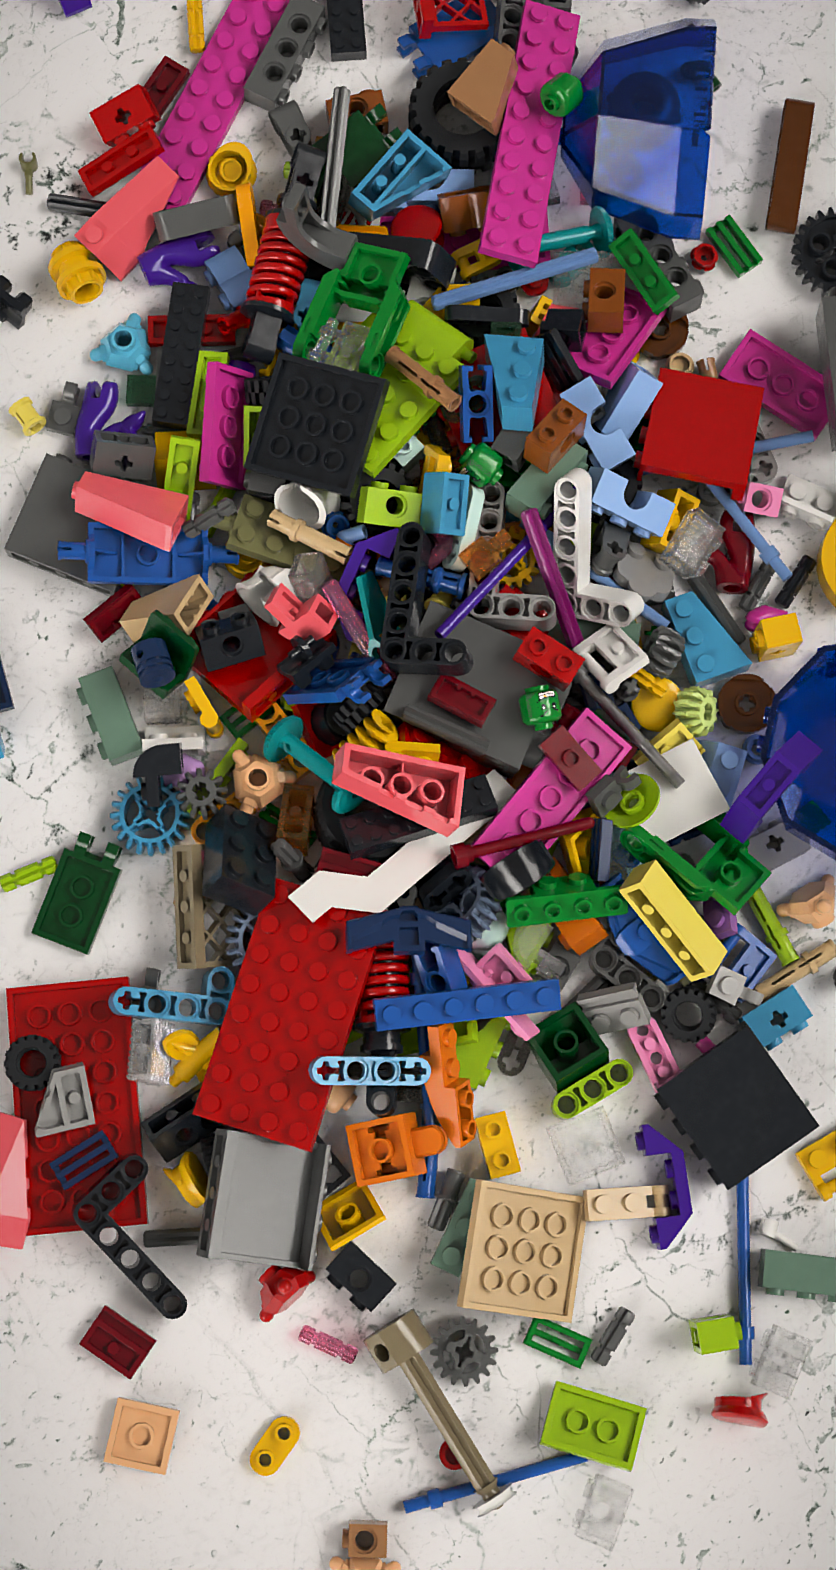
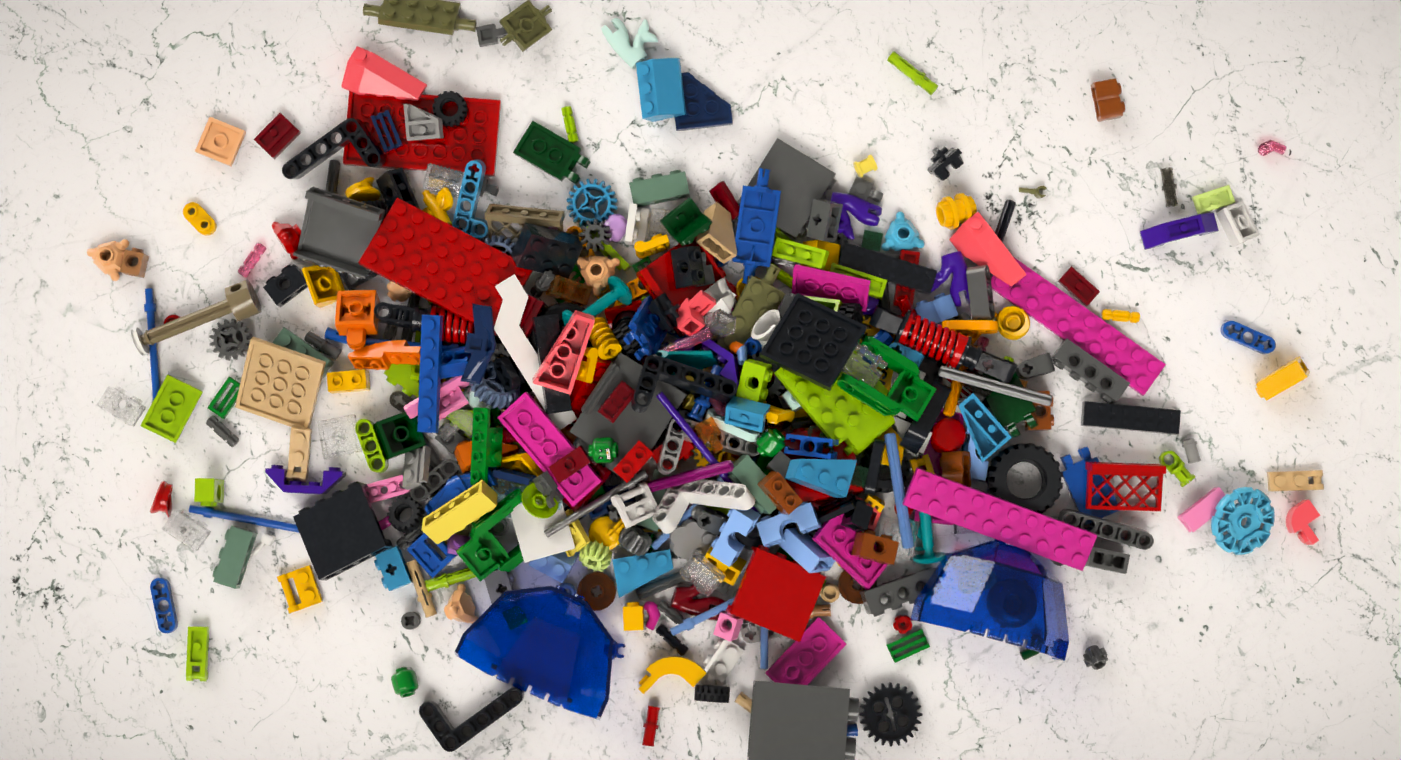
camera: 105 degrees right, 5 degrees up
(111, 115) = (1065, 266): red brick -> none
(121, 160) = (1029, 251): red plate -> none
(132, 508) = (784, 220): coral slope -> none
(154, 665) = (680, 216): dark blue piece -> none
(155, 762) = (618, 210): black brick -> none
(209, 517) = (770, 266): dark grey axle -> none
(299, 531) = (751, 321): tan pin -> none
(311, 233) = (946, 362): dark grey arch -> none
(369, 1074) = (403, 307): beam -> none
(431, 385) = (825, 419): medium nougat pin -> none
(465, 854) = (521, 387): dark red piece -> none
(486, 85) = (1034, 495): medium nougat slope -> none
(518, 871) = (504, 415): black piece -> none
(561, 94) = (1019, 543): green head -> none
(644, 271) = (891, 577): green plate -> none
(729, 986) = (417, 543): light grey plate -> none
(769, 786) = (531, 589): dark purple slope -> none
(790, 166) = (957, 694): reddish brown beam -> none

